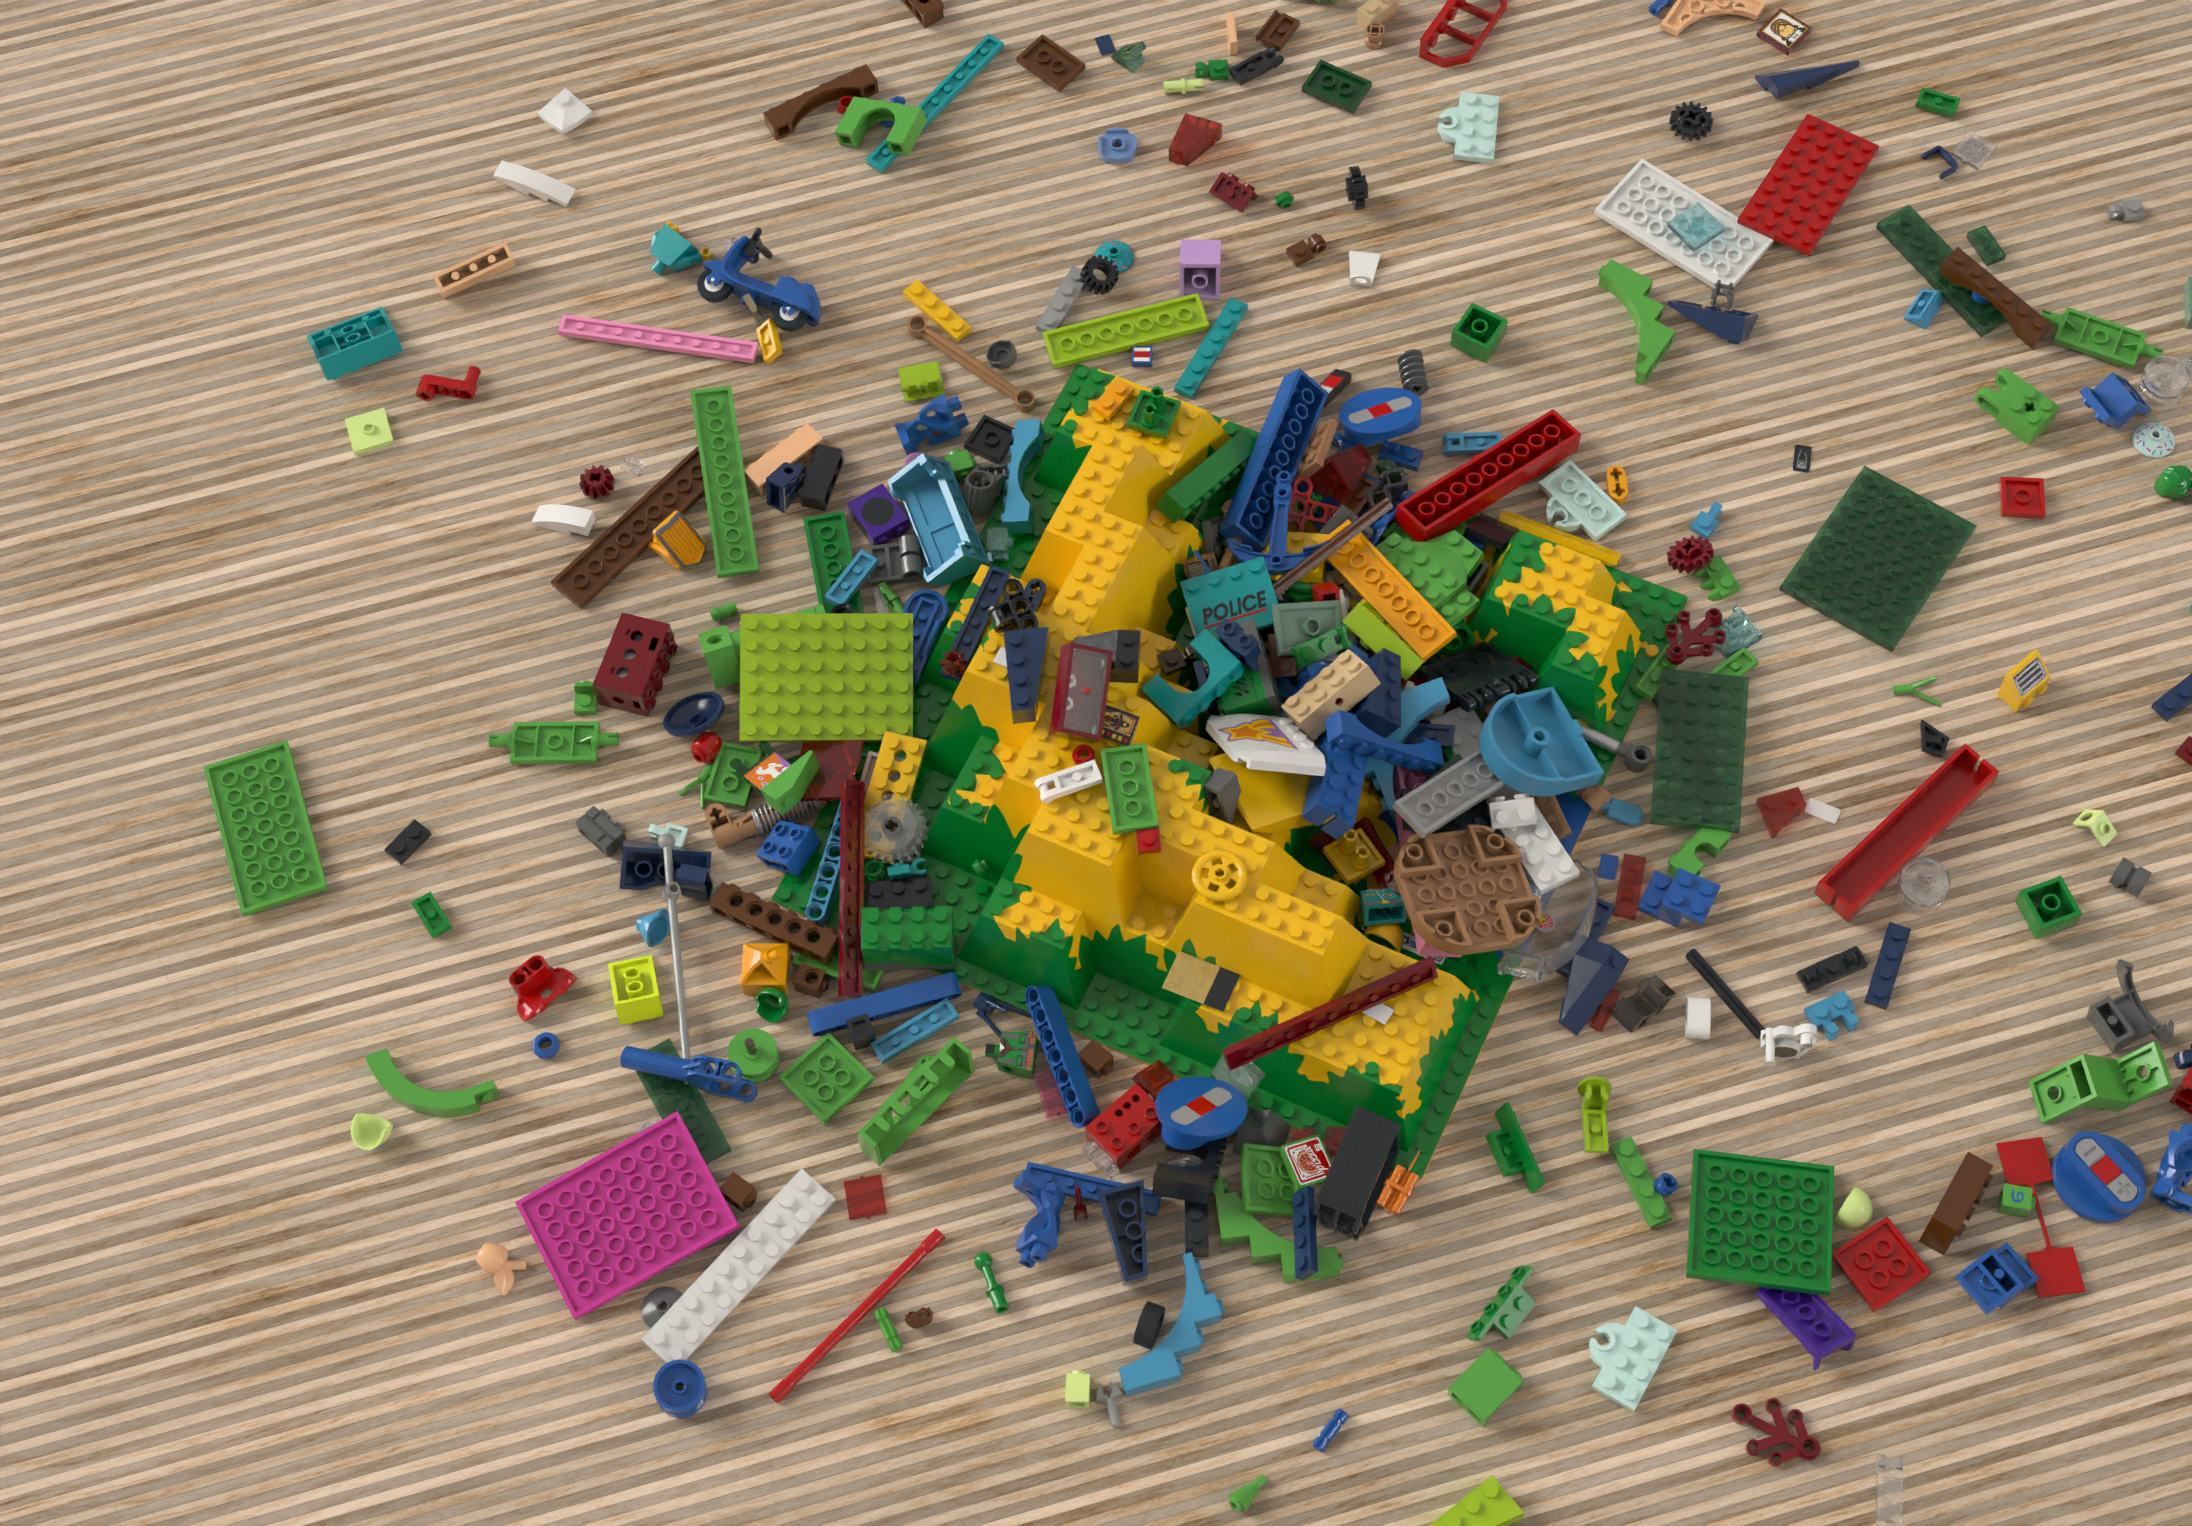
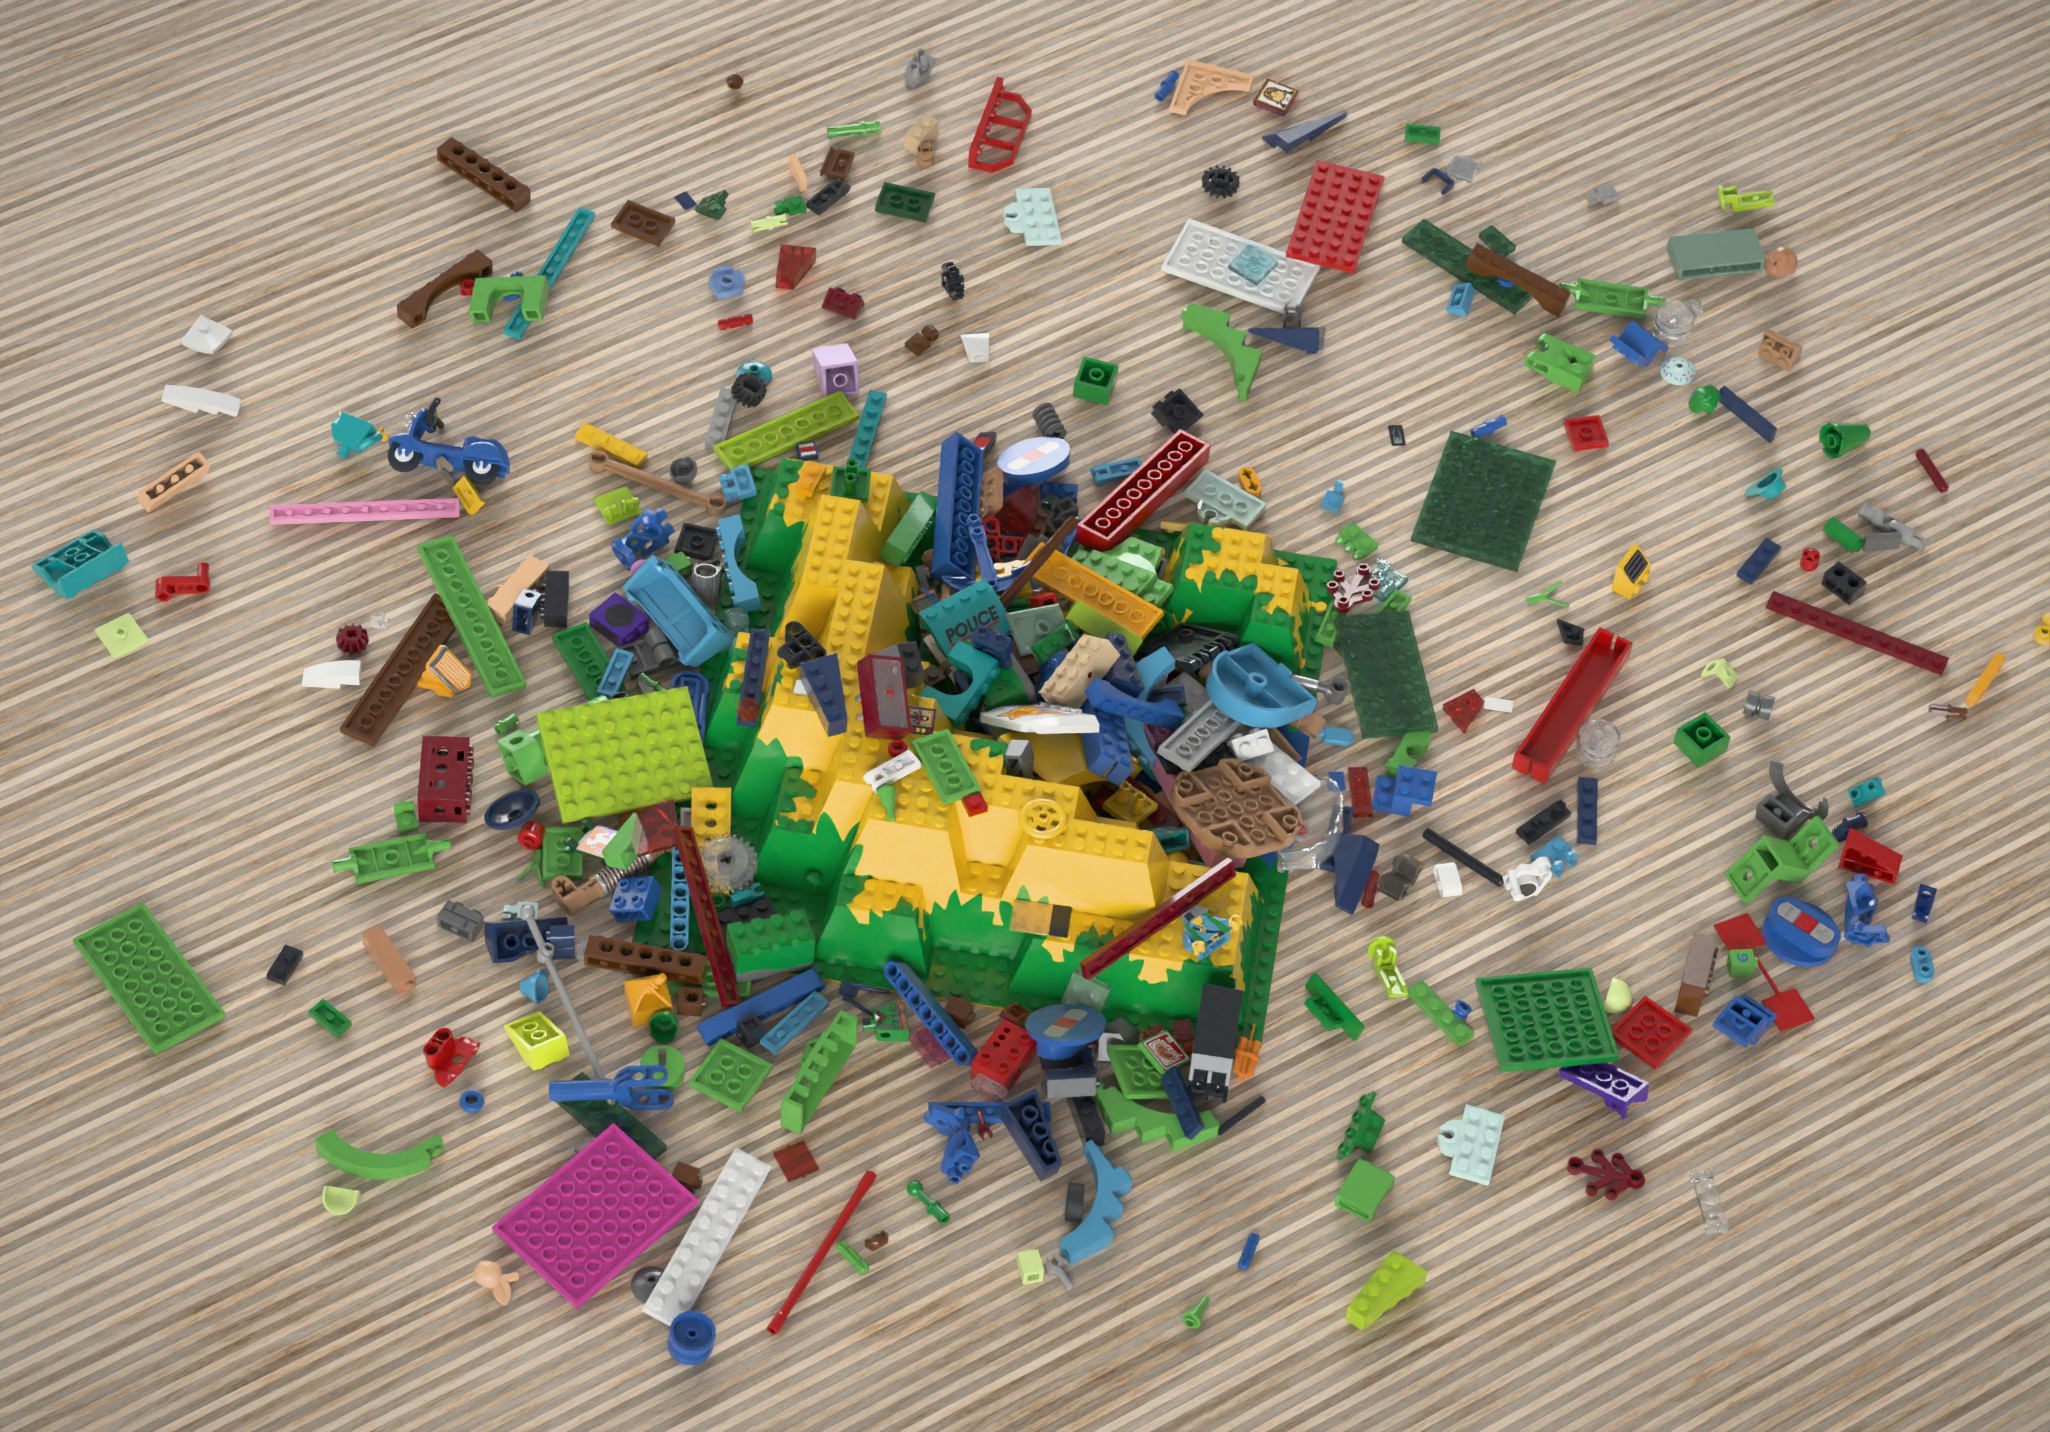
camera: 25 degrees left, 10 degrees down
(513, 860) = (388, 959): none -> nougat brick
(1052, 812) = (887, 797): none -> bright green cone
(1059, 381) = (743, 483): none -> dark azure plate
(1112, 192) = (734, 322): none -> red axle
(1284, 199) = (890, 302): green plate -> none
(1373, 1257) = (1241, 1115): none -> black bar
(1379, 1044) = (1207, 933): none -> torso
(1490, 531) = (1159, 535): black tile -> none
(1558, 386) = (1176, 411): none -> black plate
(1690, 554) = (1329, 525): dark red gear -> none
(1910, 469) = (1489, 427): none -> blue pin

